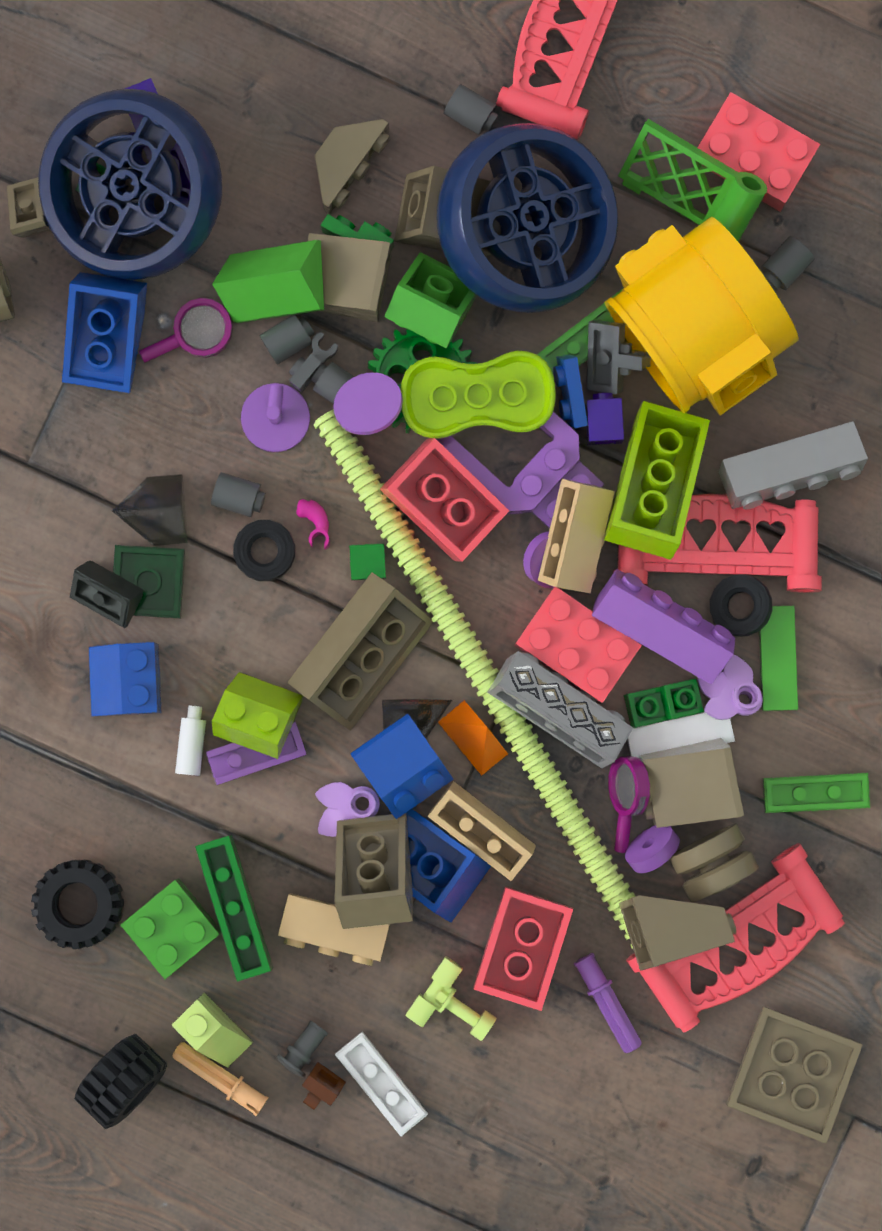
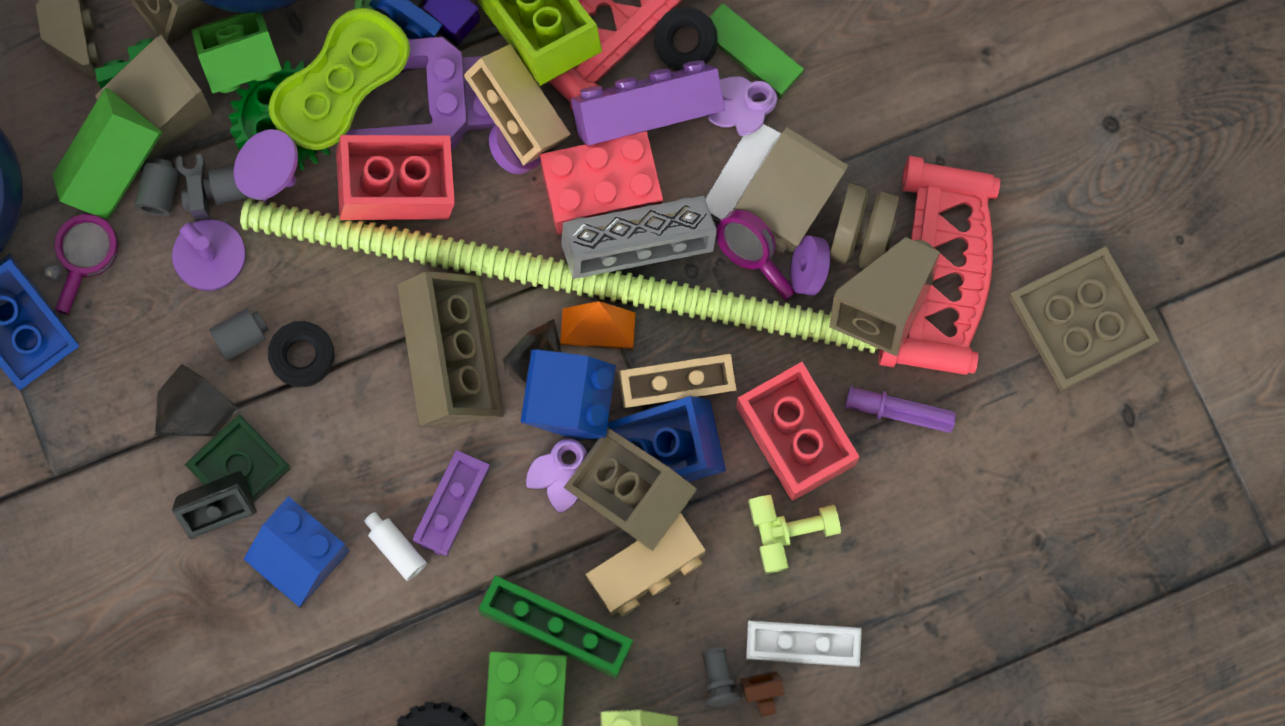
camera: 50 degrees left, 10 degrees down
(256, 714) = (422, 474): lime slope -> none
(316, 514) = (313, 289): dark pink arm -> none
(367, 559) = (383, 284): green tile -> none
(663, 703) = (706, 161): green slope -> none
(816, 793) = (880, 113): bright green tile -> none

